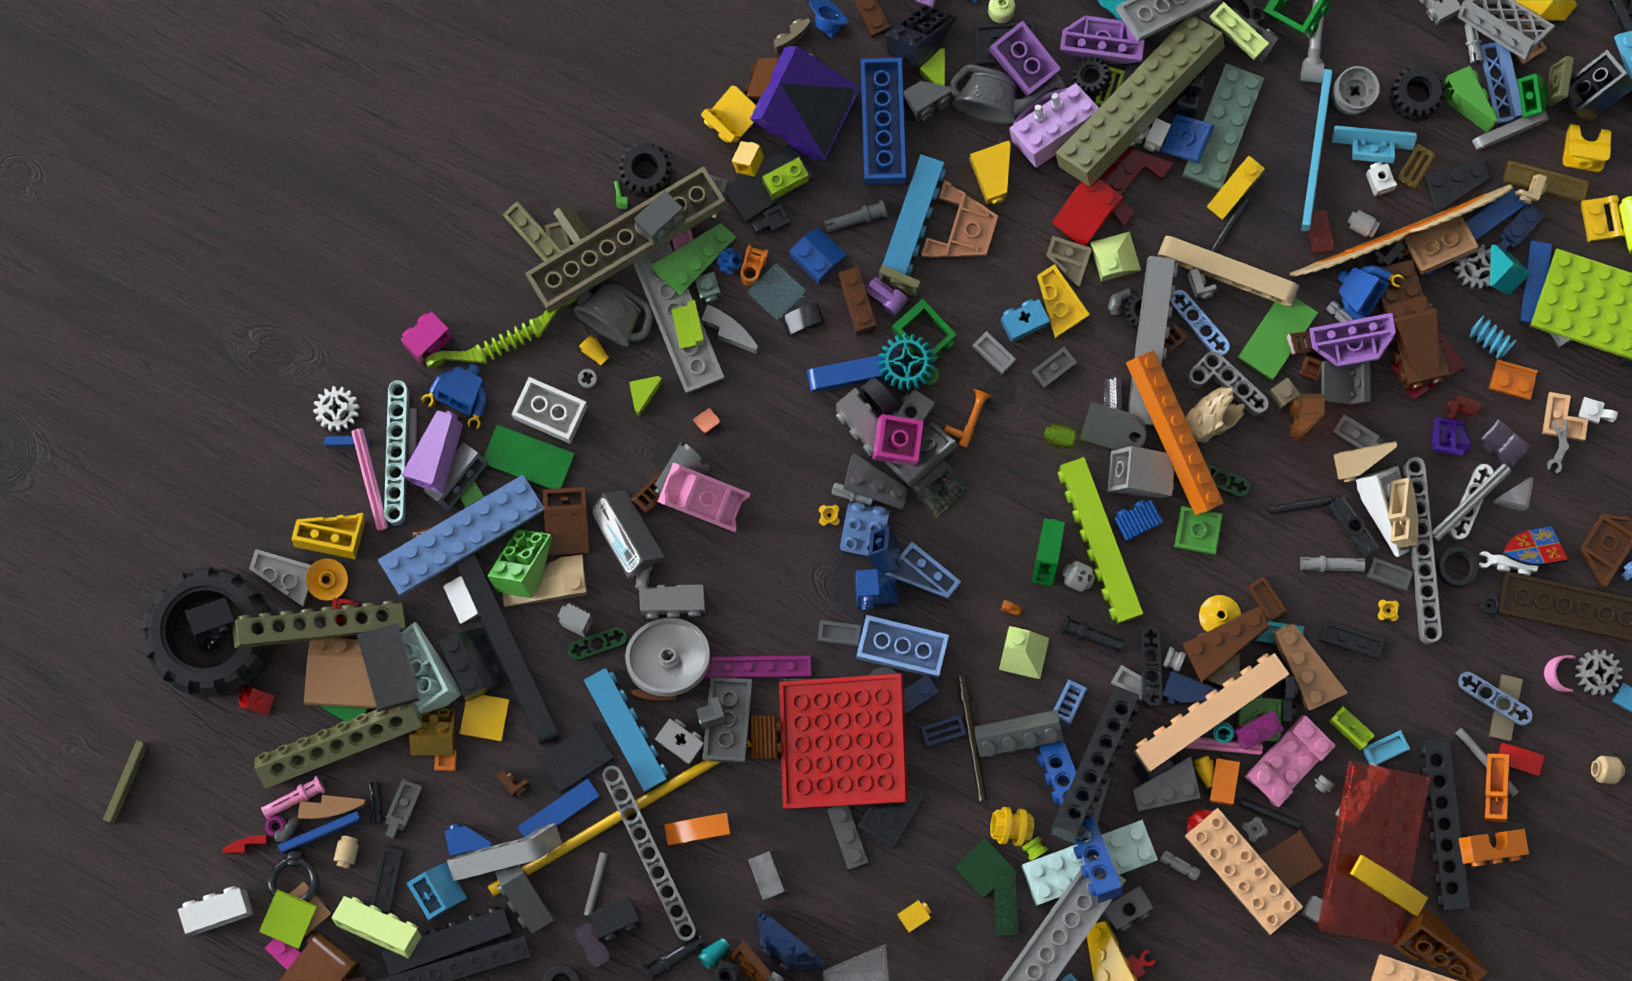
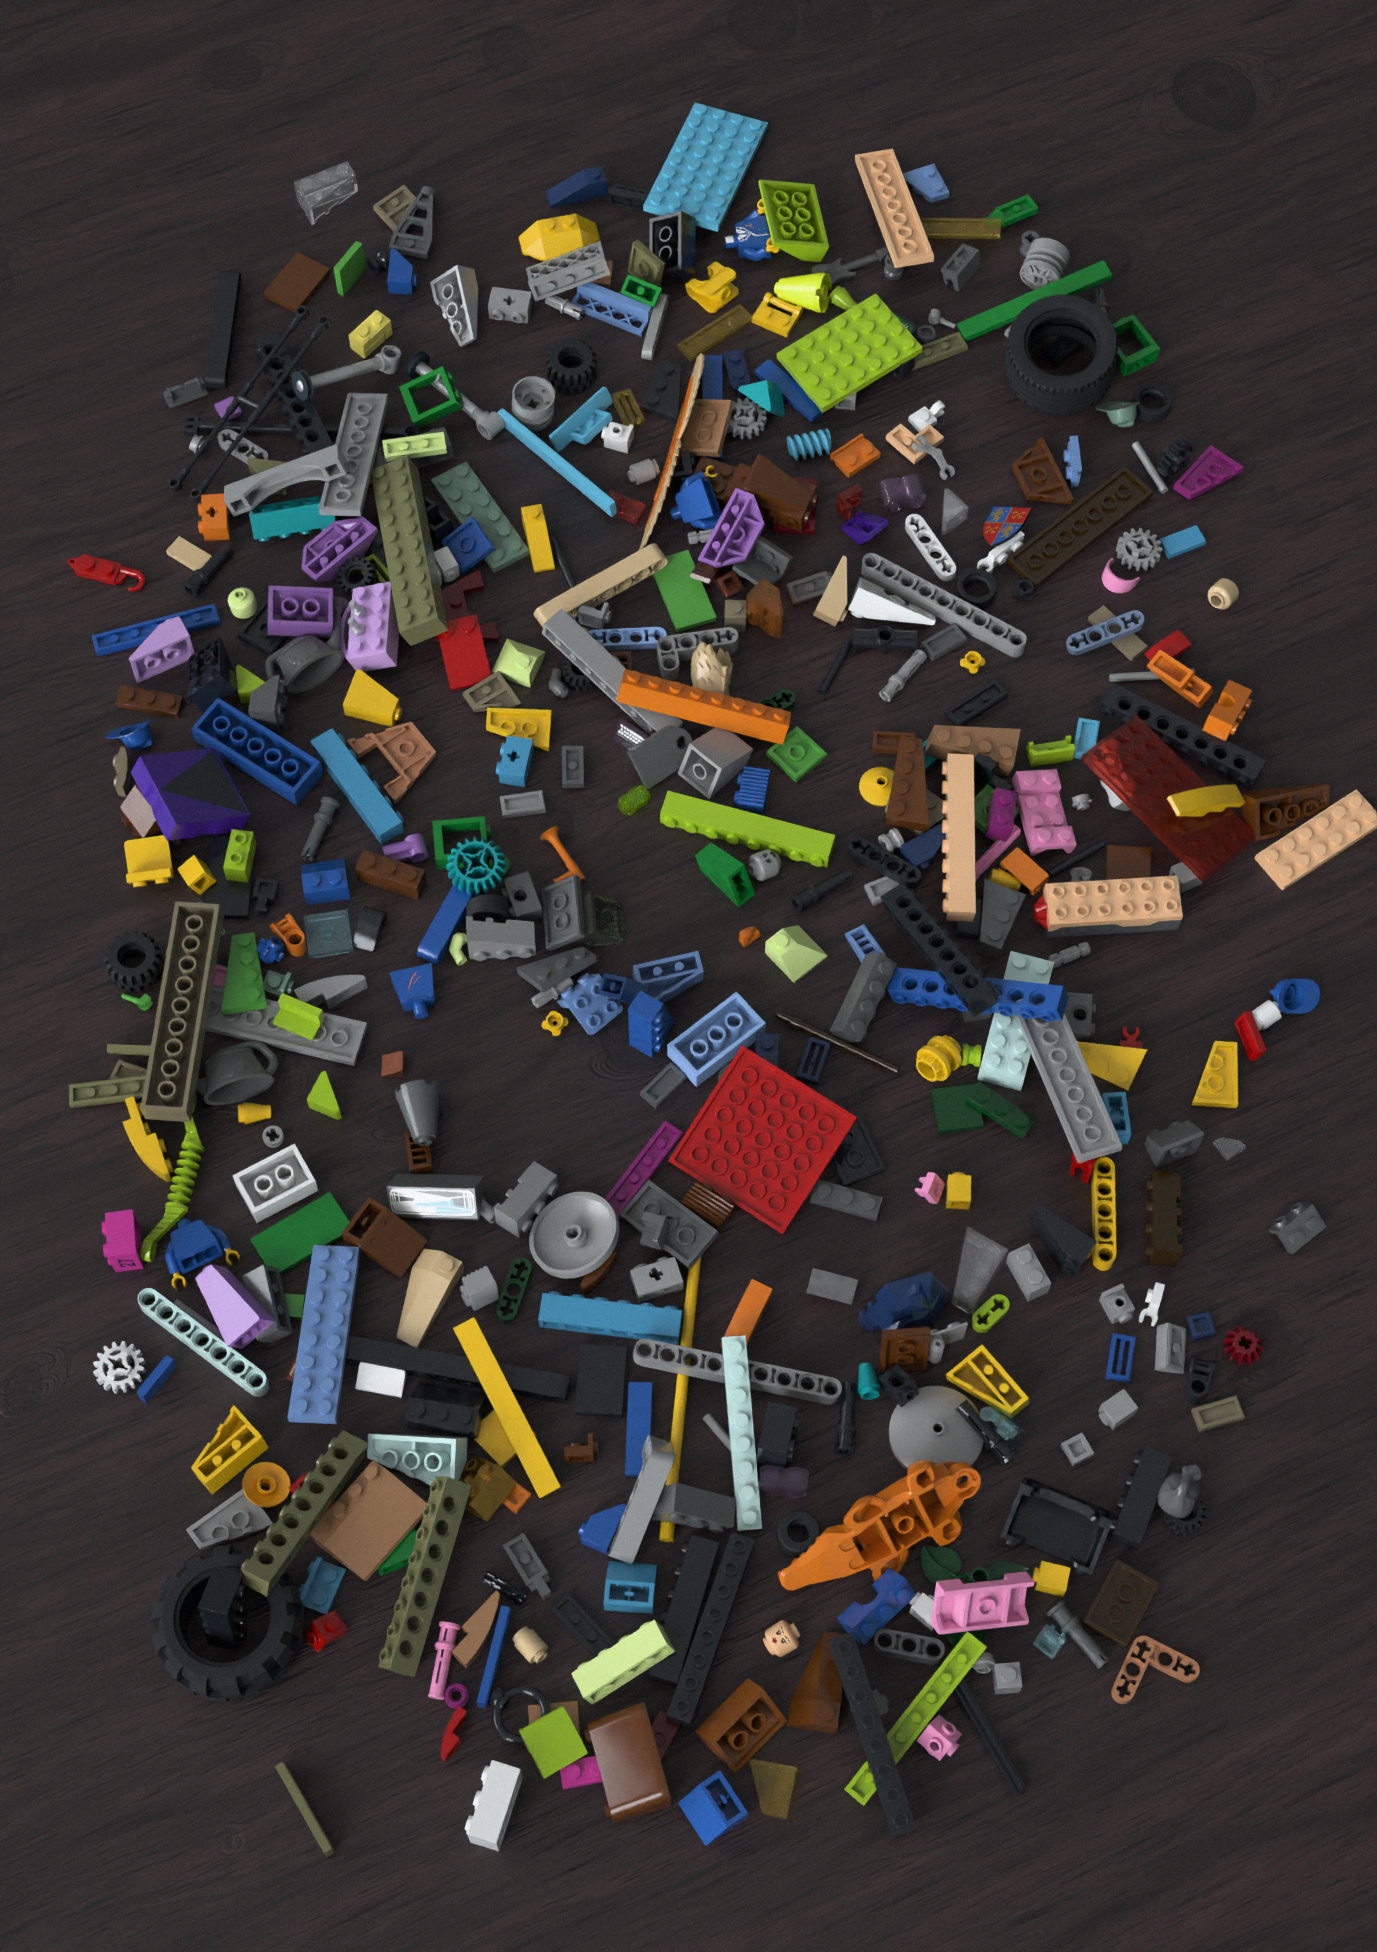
camera: 55 degrees left, 15 degrees down
(284, 674) = (321, 1586): none -> dark azure bracket
(288, 830) = (472, 1688): dark grey arm -> none
(369, 479) = (208, 1380): bright pink axle -> none
(388, 667) = (394, 1475): black tile -> none
(502, 706) = (507, 1408): none -> yellow tile
(511, 298) = (145, 1143): none -> yellow slope
(521, 563) = (392, 1301): bright green slope -> none
(604, 889) = (741, 1433): none -> light aqua plate
(660, 219) = (191, 959): dark grey brick -> none
(702, 496) = (456, 1104): bright pink piece -> none
(778, 392) = (415, 988): none -> blue torso
(834, 395) = (455, 947): none -> yellowish green arm
(898, 440) = (538, 914): dark pink brick -> none
(899, 281) = (402, 826): olive tile -> none
(902, 894) = (931, 1188): none -> bright pink tile
(1223, 736) = (983, 841): teal cone -> none
(1403, 513) = (903, 592): tan slope -> none
(1467, 505) = (931, 543): light grey axle -> none
(1469, 99) = (610, 332): bright green slope -> none
(1536, 189) = (717, 339): tan bracket -> none

